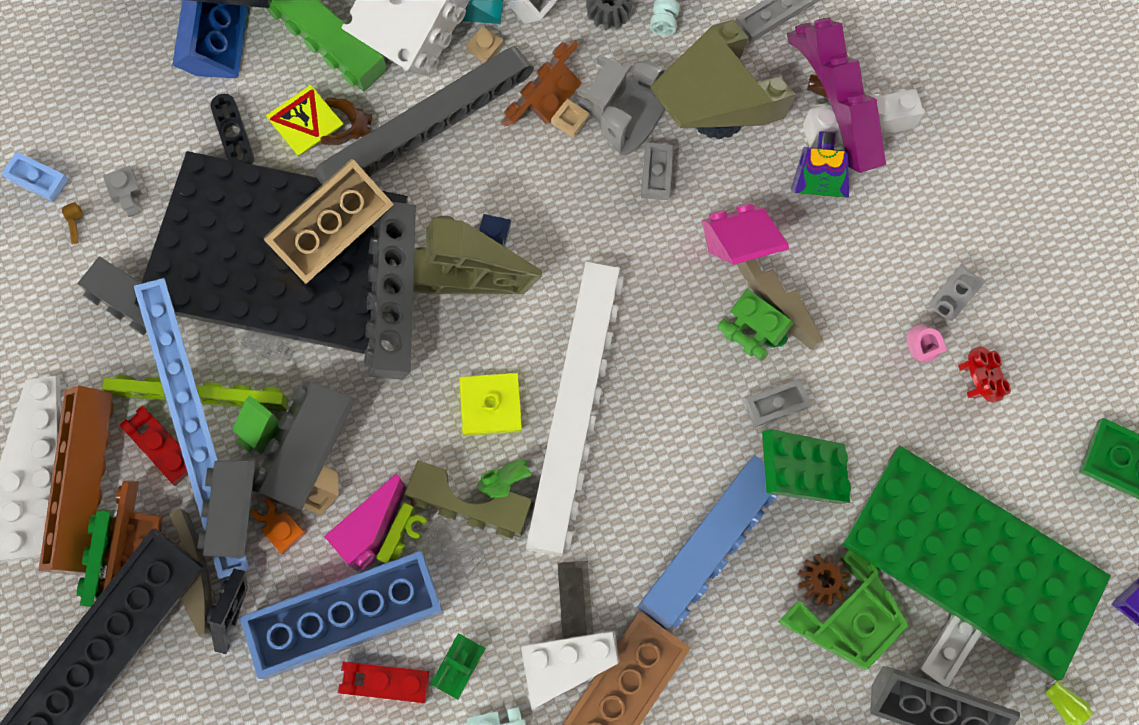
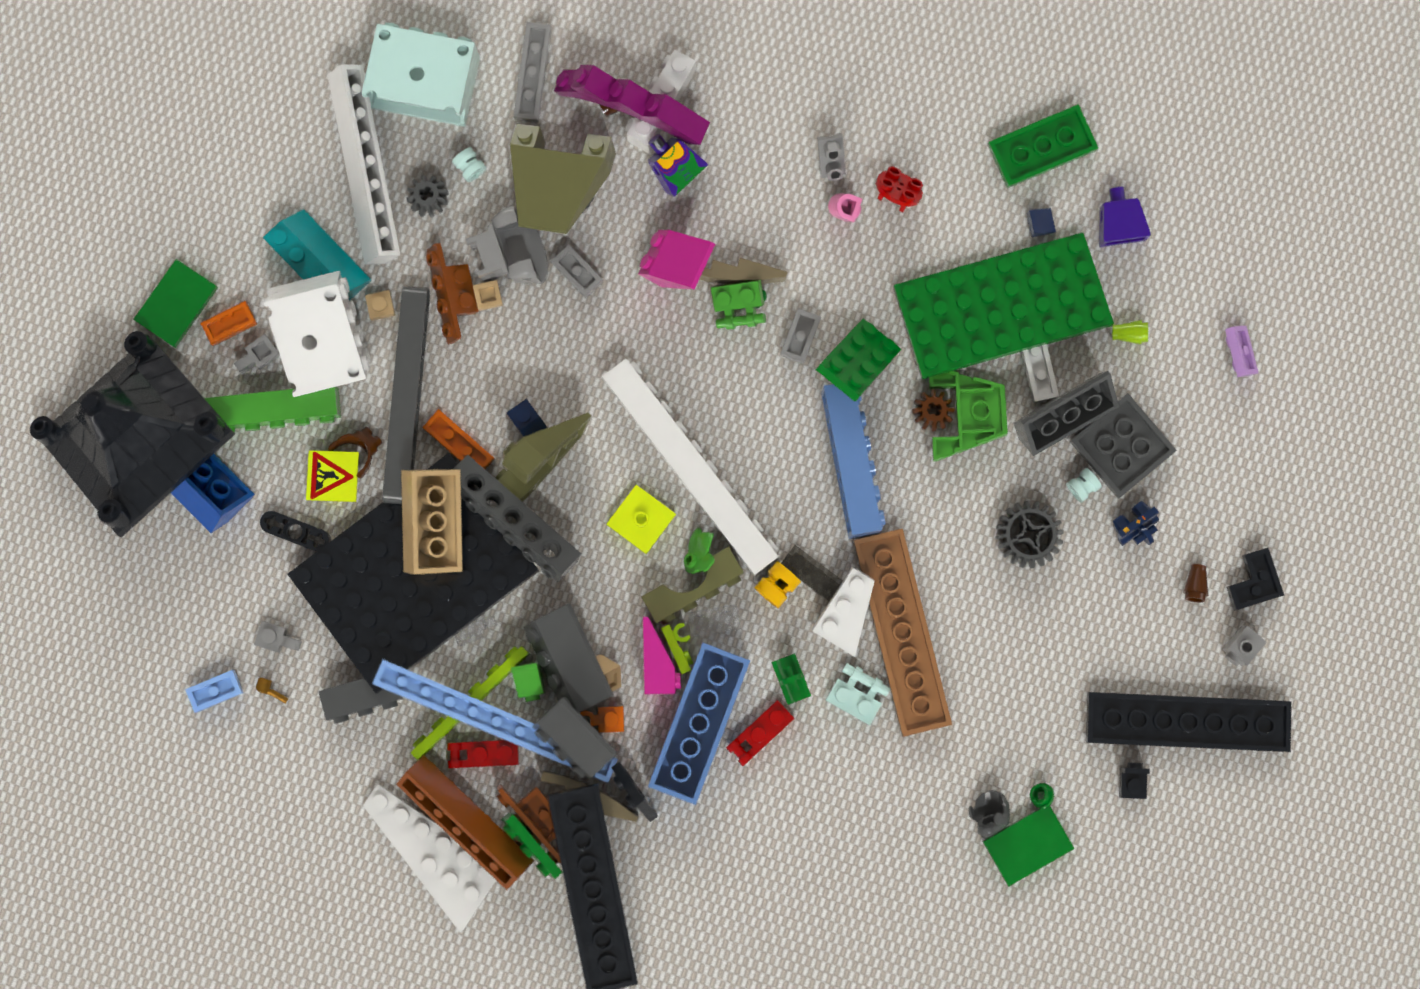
camera: 45 degrees left, 10 degrees up
(423, 192) = (456, 440): none -> orange tile
(525, 576) = (773, 593): none -> yellow wheel
(1080, 528) = (1040, 222): none -> dark blue slope

